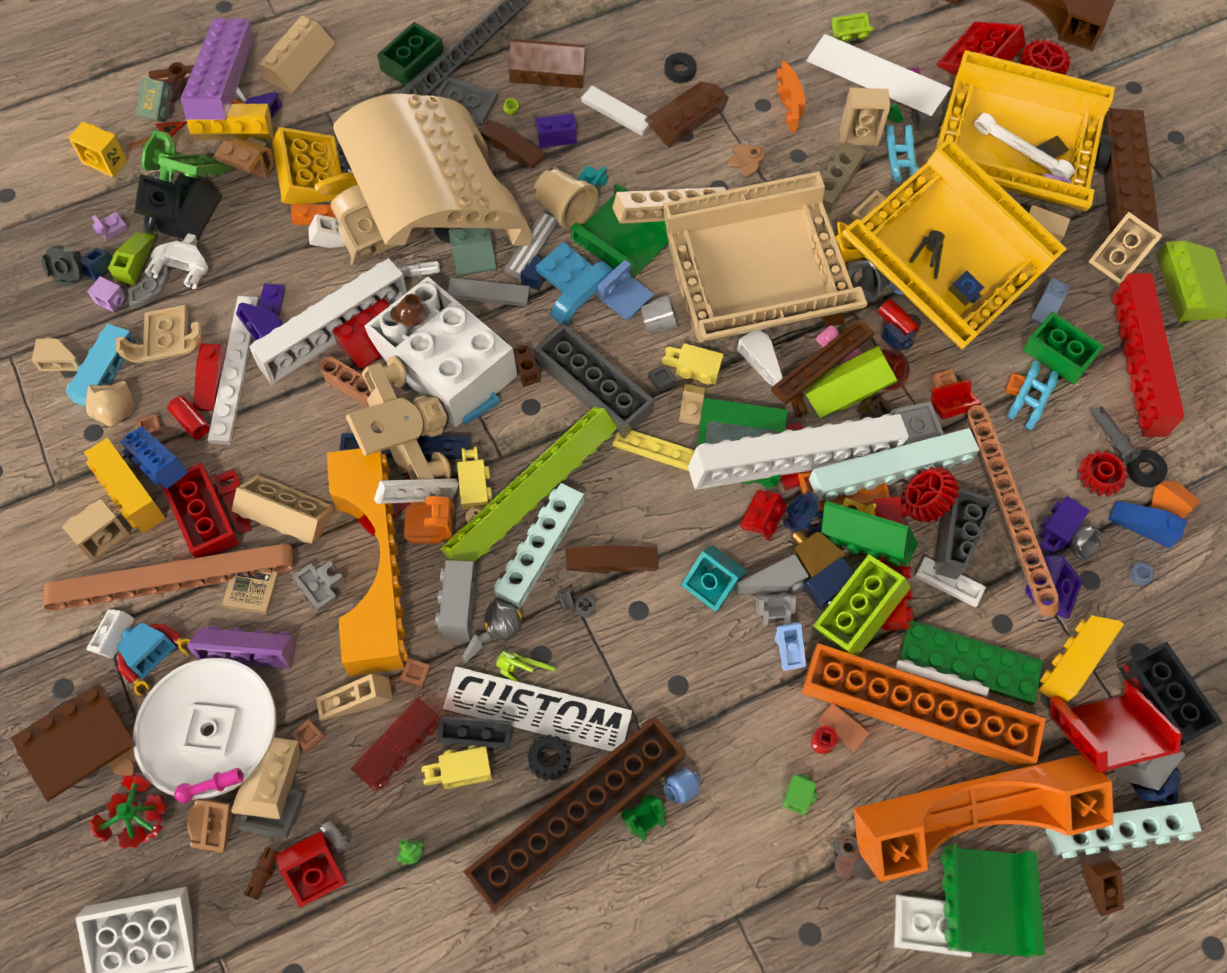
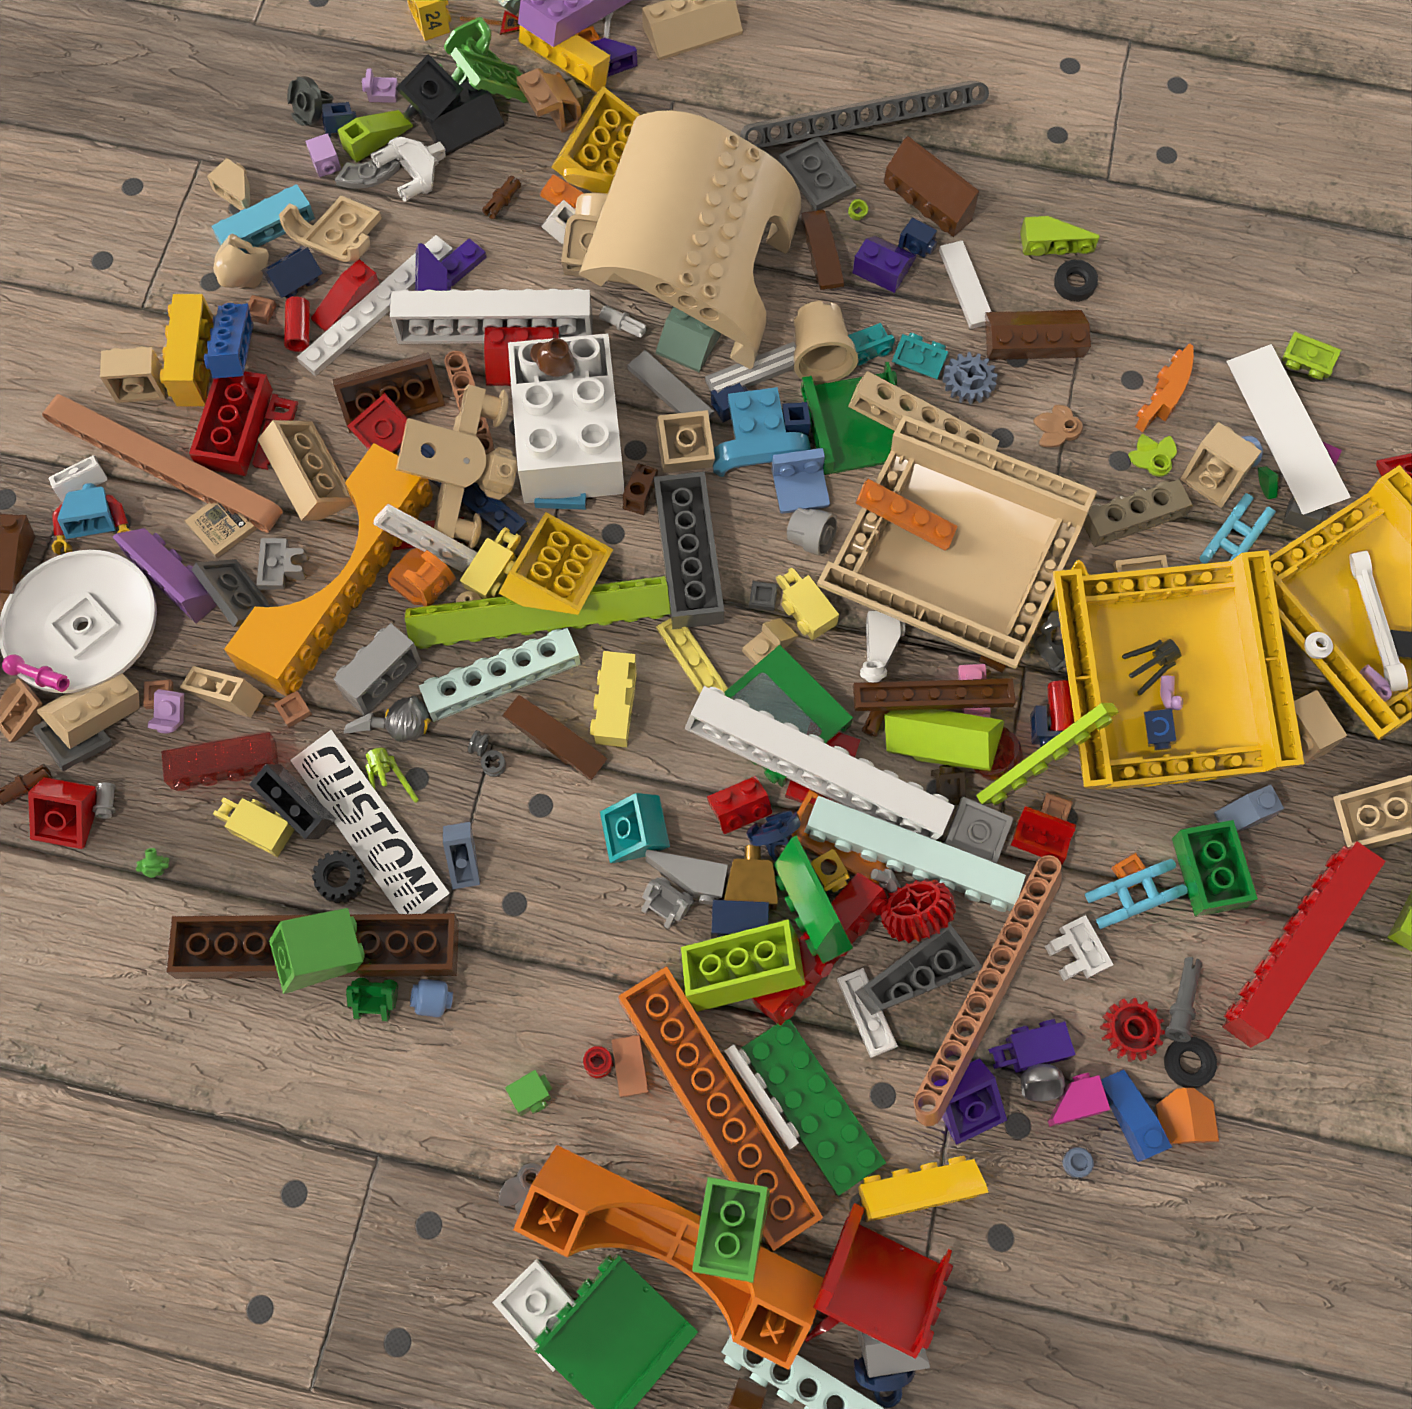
camera: 40 degrees right, 5 degrees up
(155, 384) = (292, 272): none -> dark blue brick
(263, 243) = (501, 197): none -> reddish brown pin
(297, 418) = (407, 382): none -> reddish brown slope
(304, 624) = (230, 588): none -> dark grey plate
(313, 443) = (380, 424): none -> red tile
(327, 740) = (167, 711): none -> lavender bracket
(409, 53) = (801, 87): dark green brick -> none
(521, 449) = (556, 568): none -> yellow slope
(531, 315) = (685, 441): none -> tan brick
(565, 100) = (918, 238): none -> dark blue brick
(588, 811) = (315, 949): none -> bright green slope
(591, 252) = (796, 417): none -> dark blue brick
(619, 679) = (461, 855): none -> sand blue slope
(629, 169) = (920, 356): none -> teal bracket
(630, 506) = (614, 699): none -> light yellow wedge
(645, 49) = (1051, 236): none -> lime slope
(670, 163) = (969, 378): none -> sand blue gear
(711, 265) = (906, 514): none -> orange plate
(777, 371) = (873, 671): none -> white plate
(791, 646) = (645, 950): light blue slope -> none
(815, 140) = (1152, 453): none -> lime plate
(892, 491) = (887, 879): none -> light grey bar
(930, 337) = (1055, 749): none -> lime plate
(953, 266) = (1167, 694): none -> lavender arm
(1009, 766) = (731, 1229): none -> bright green slope
(1016, 177) = (1317, 652): none -> white plate
(1035, 446) = (1084, 945): none -> white plate
(1113, 536) = (1080, 1100): none -> dark pink slope
(1172, 691) = (982, 1302): black brick -> none

